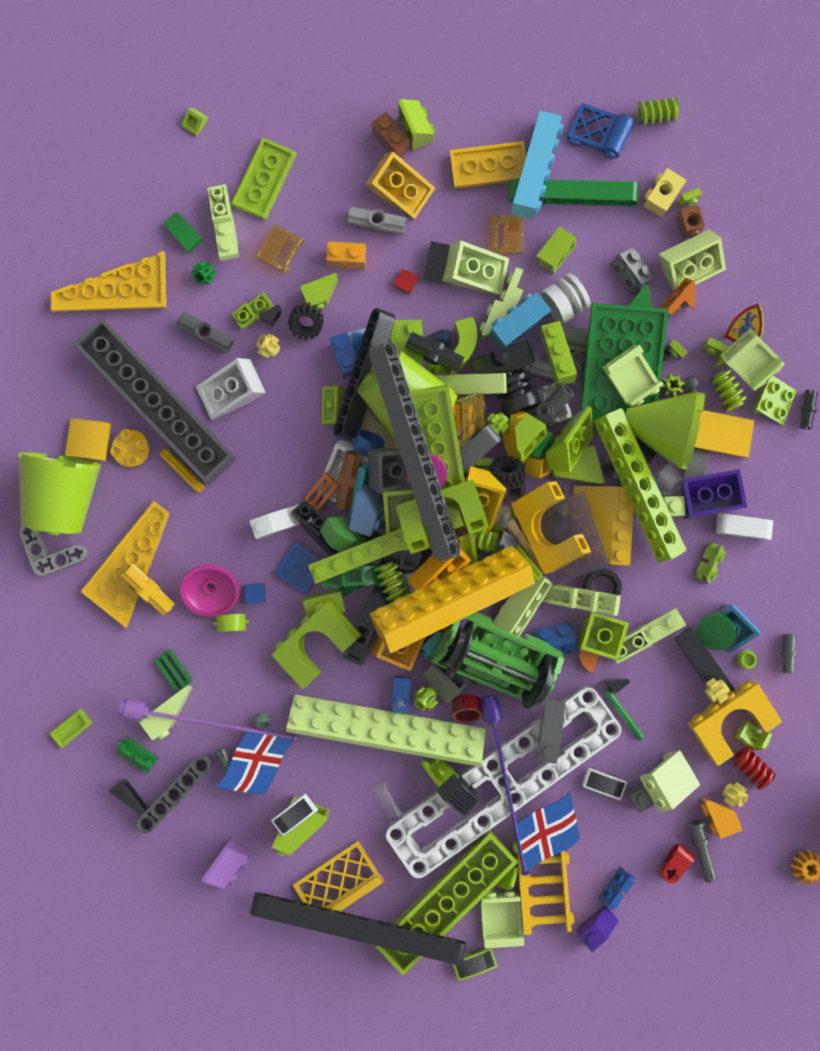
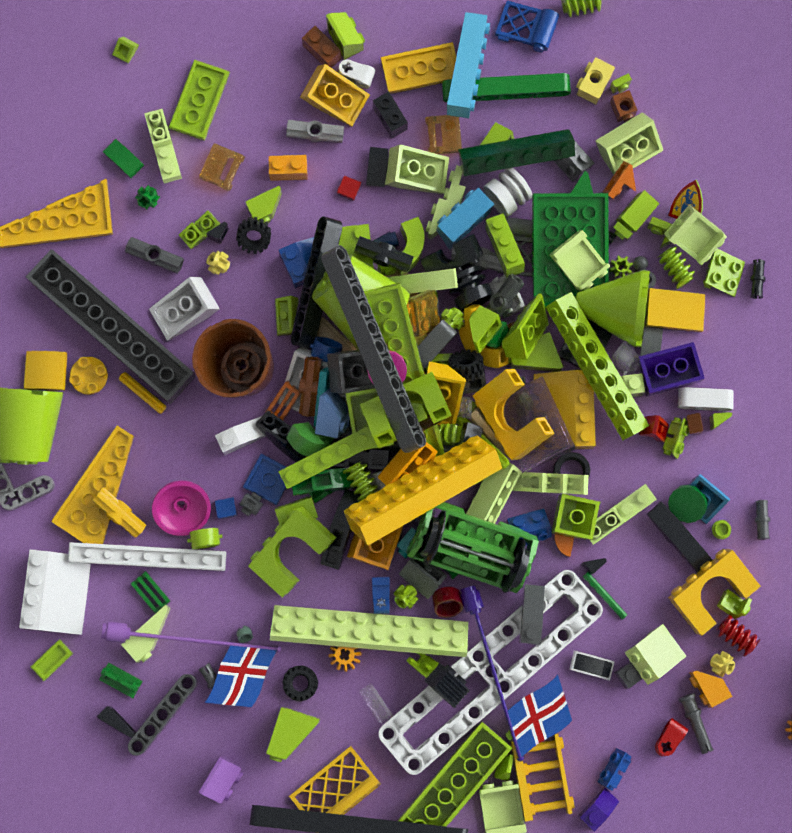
camera: 10 degrees left, 5 degrees down
(79, 662) = (54, 593): none -> white slope
(172, 635) = (147, 556): none -> white tile
(259, 445) = (221, 353): none -> dark orange cone
(280, 592) = (251, 504): none -> dark grey gear
(294, 815) = (286, 718): slope -> none
(307, 785) = (288, 683): none -> black tyre
(357, 757) = (351, 657): none -> light orange gear
(426, 166) = (358, 74): none -> white piece
(453, 210) = (390, 115): none -> black brick
(579, 259) = (516, 152): none -> dark green brick
(693, 552) = (657, 428): none -> red slope
(694, 329) = (637, 211): none -> lime hinge
(717, 690) = (692, 560): light yellow gear -> none
(732, 551) = (695, 423): none -> dark orange slope
(754, 549) = (718, 418): none -> lime slope

